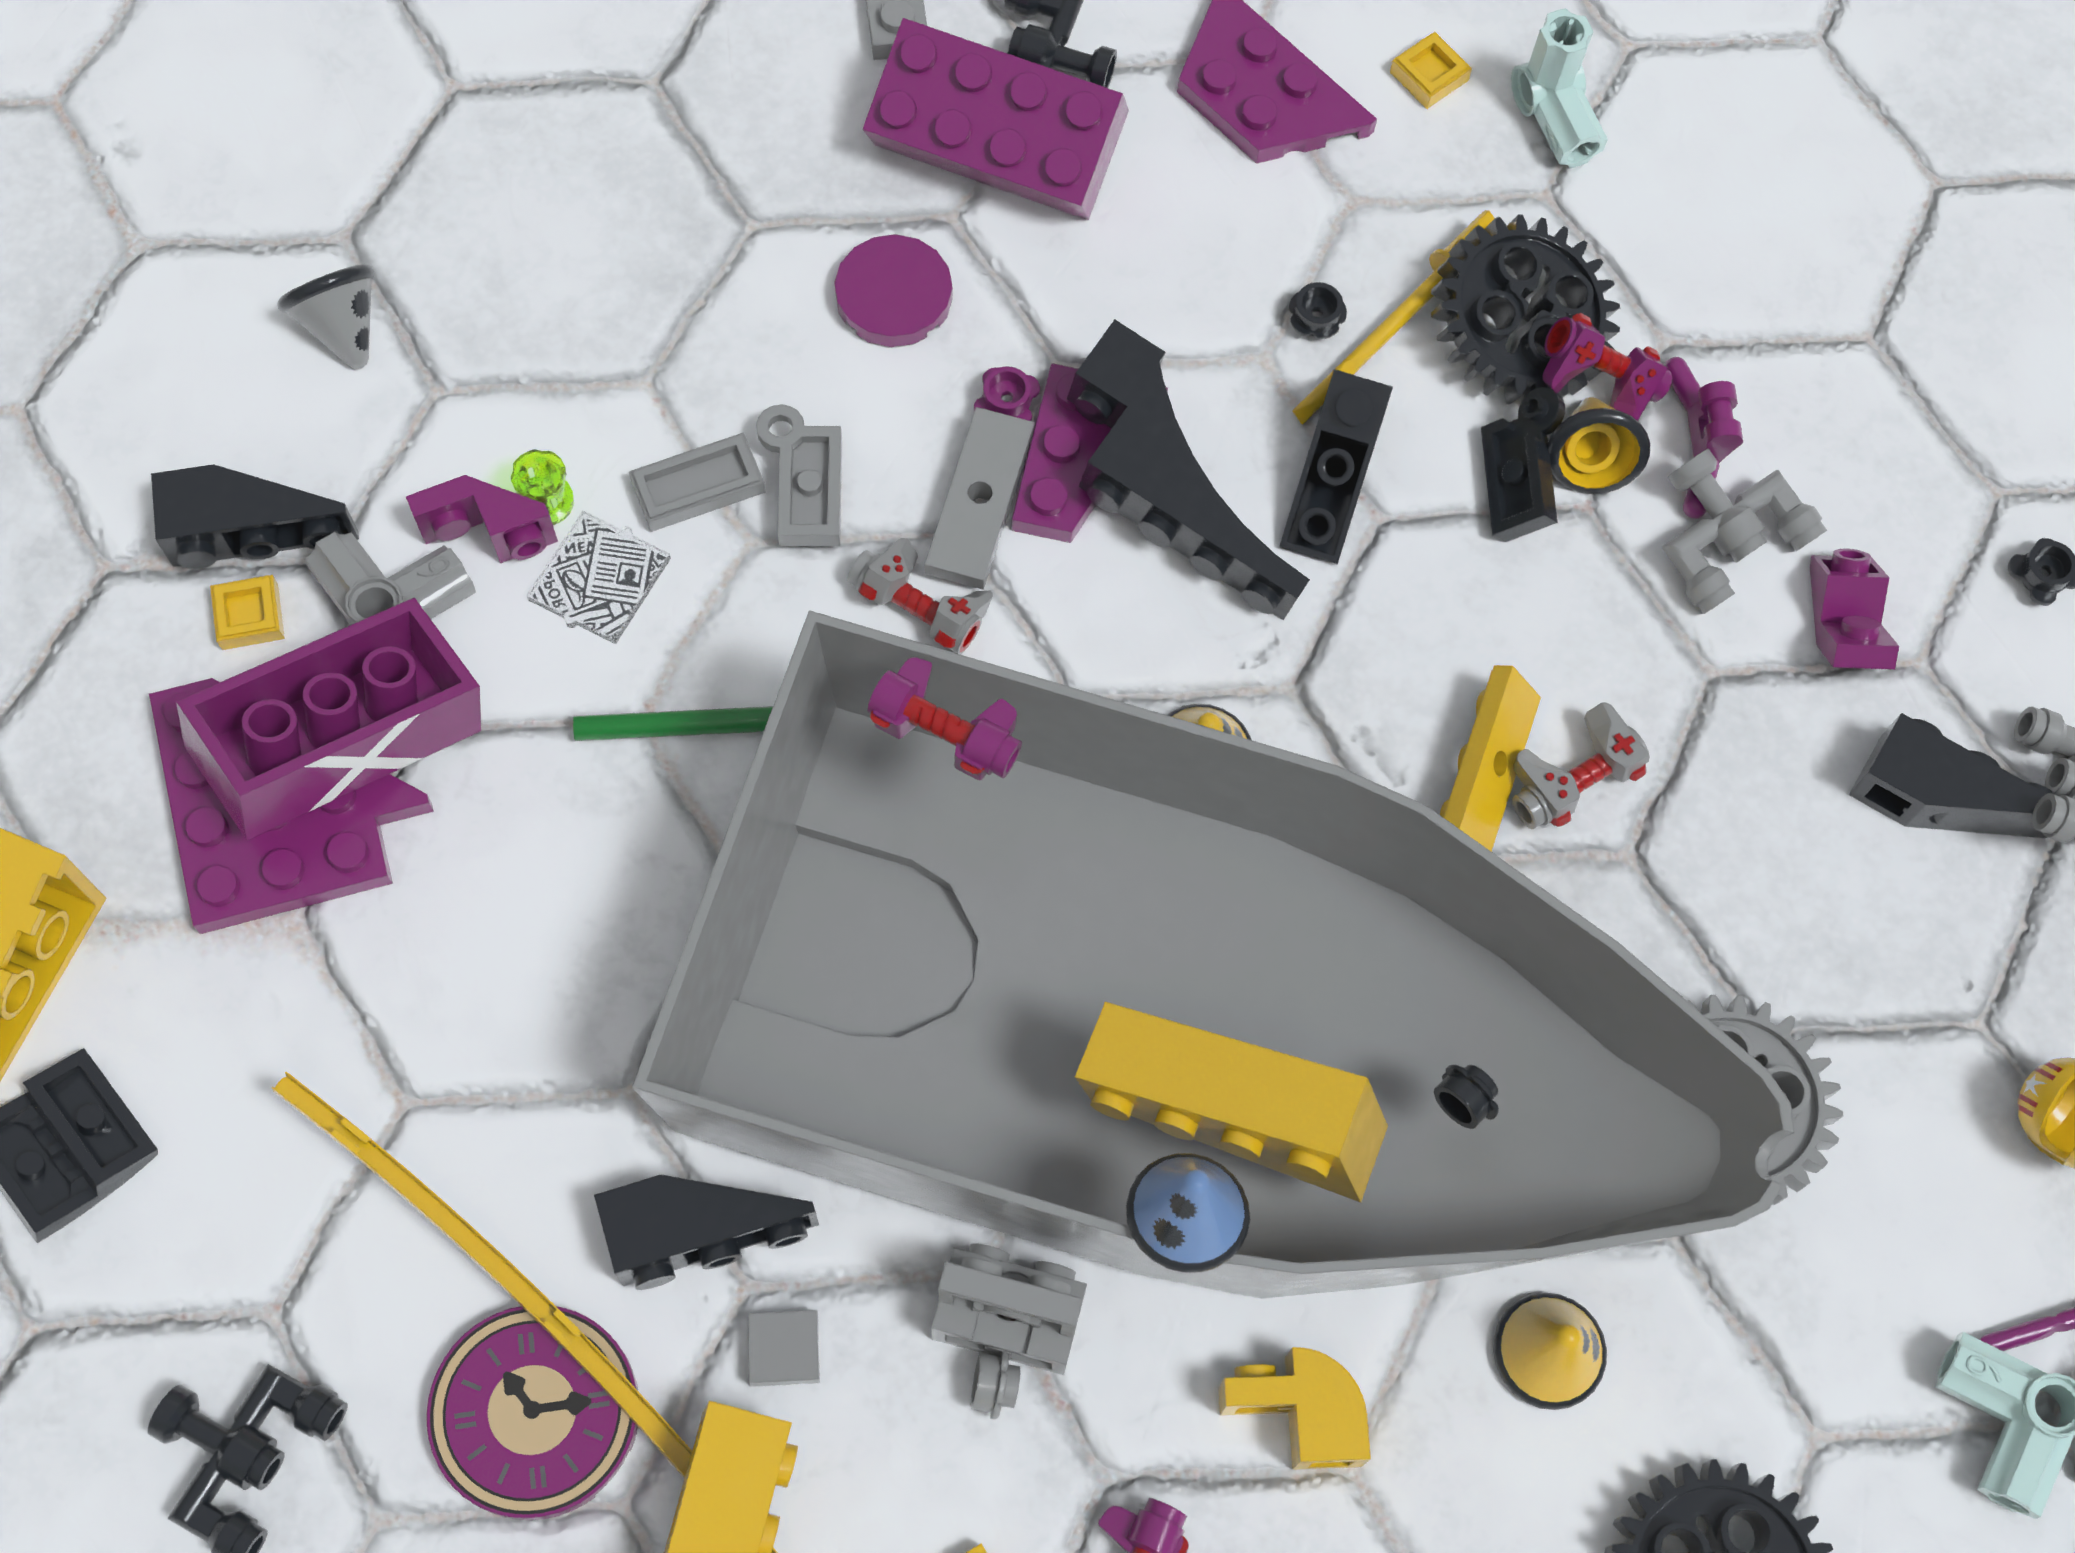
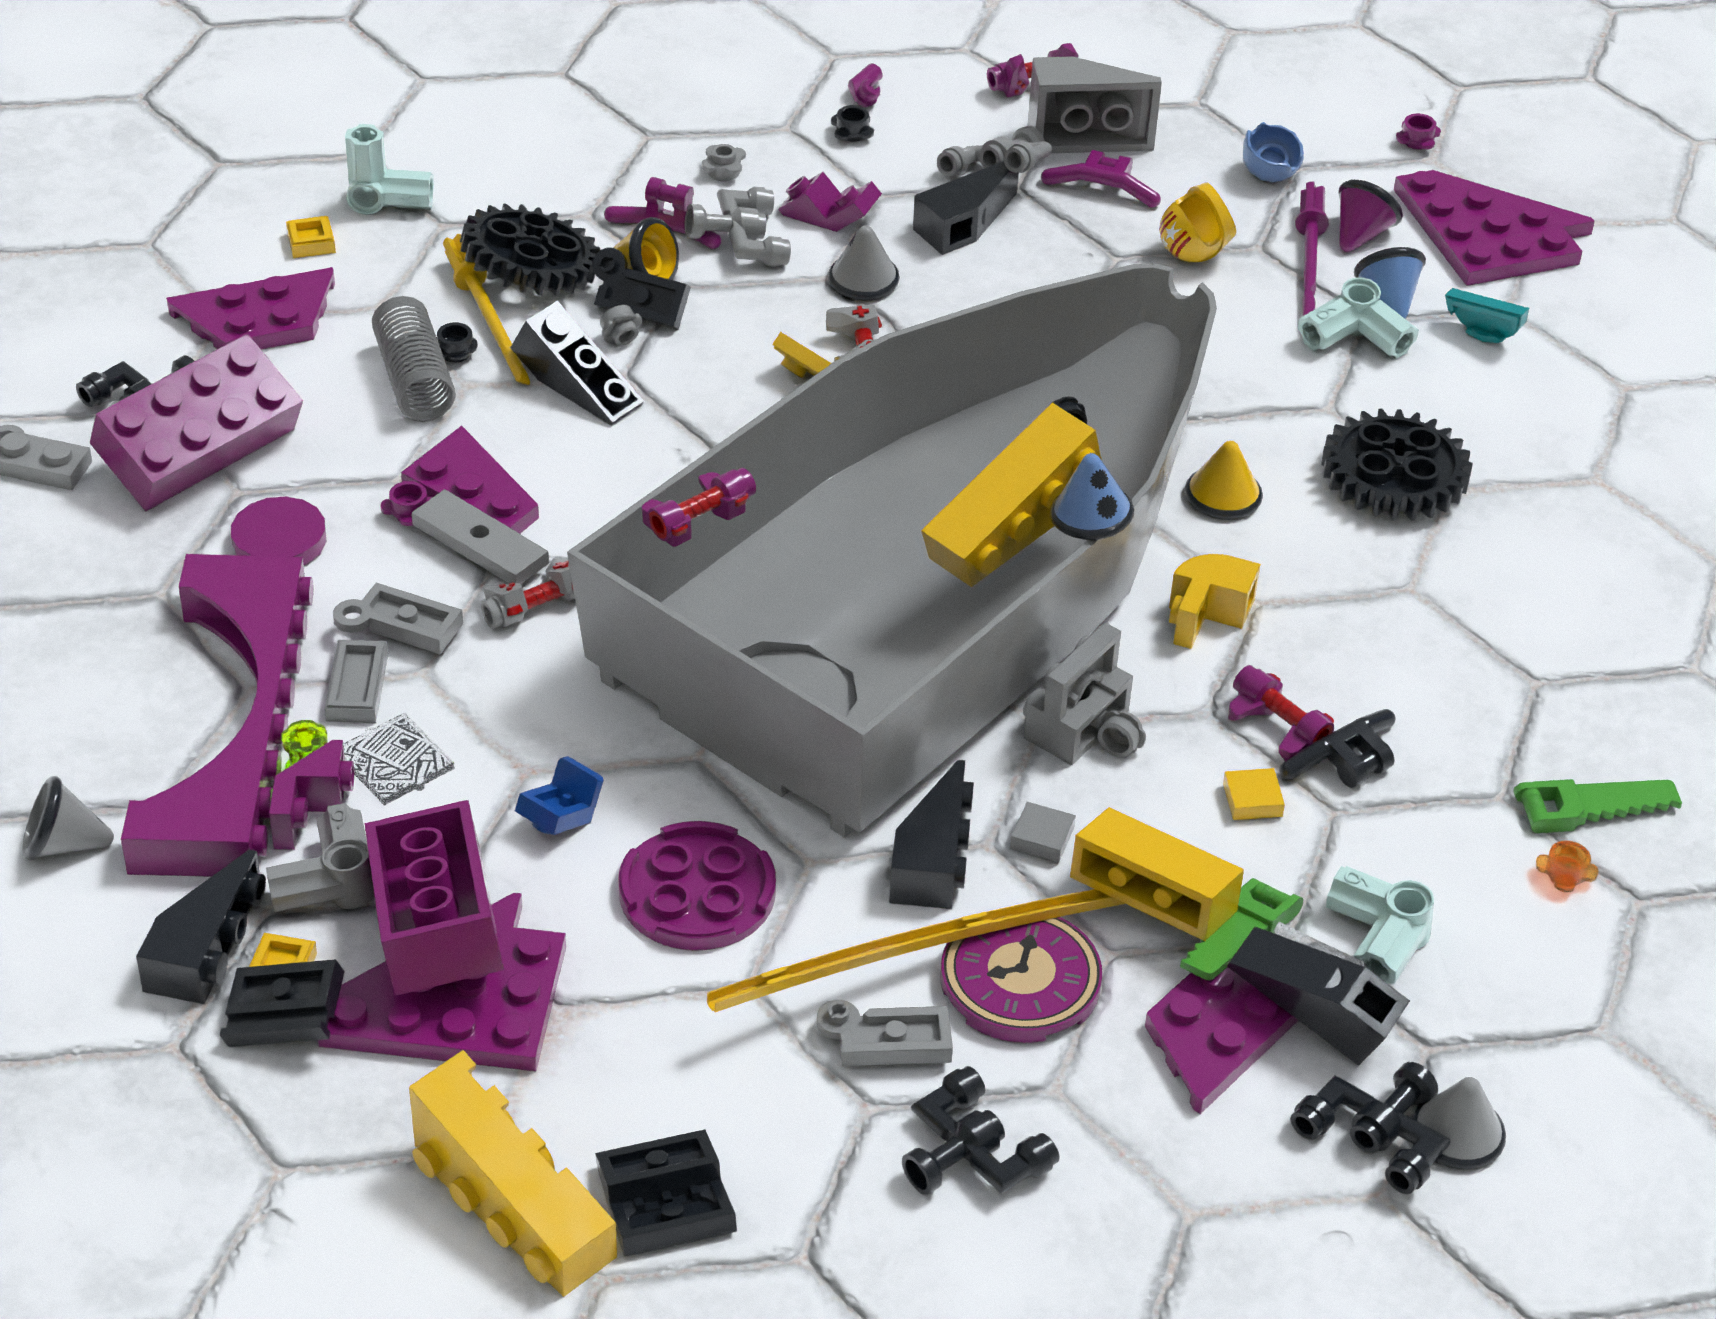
camera: 65 degrees left, 25 degrees down
(165, 642) = (282, 1003): none -> black plate
(367, 1293) = (887, 1034): none -> light grey hinge
(532, 983) = (697, 886): none -> magenta tile
(579, 779) = (565, 801): none -> blue bracket
(670, 723) = (552, 734): green bar -> none
(739, 337) = (223, 806): none -> magenta arch
(1156, 481) = (534, 440): black arch -> none
(1202, 316) = (402, 379): none -> light grey piece
(1452, 475) = (620, 325): none -> light grey plate
(1578, 345) = (585, 226): magenta piece -> none
(1736, 716) = (864, 268): none -> light grey hat
(1856, 461) = (723, 162): none -> light grey plate

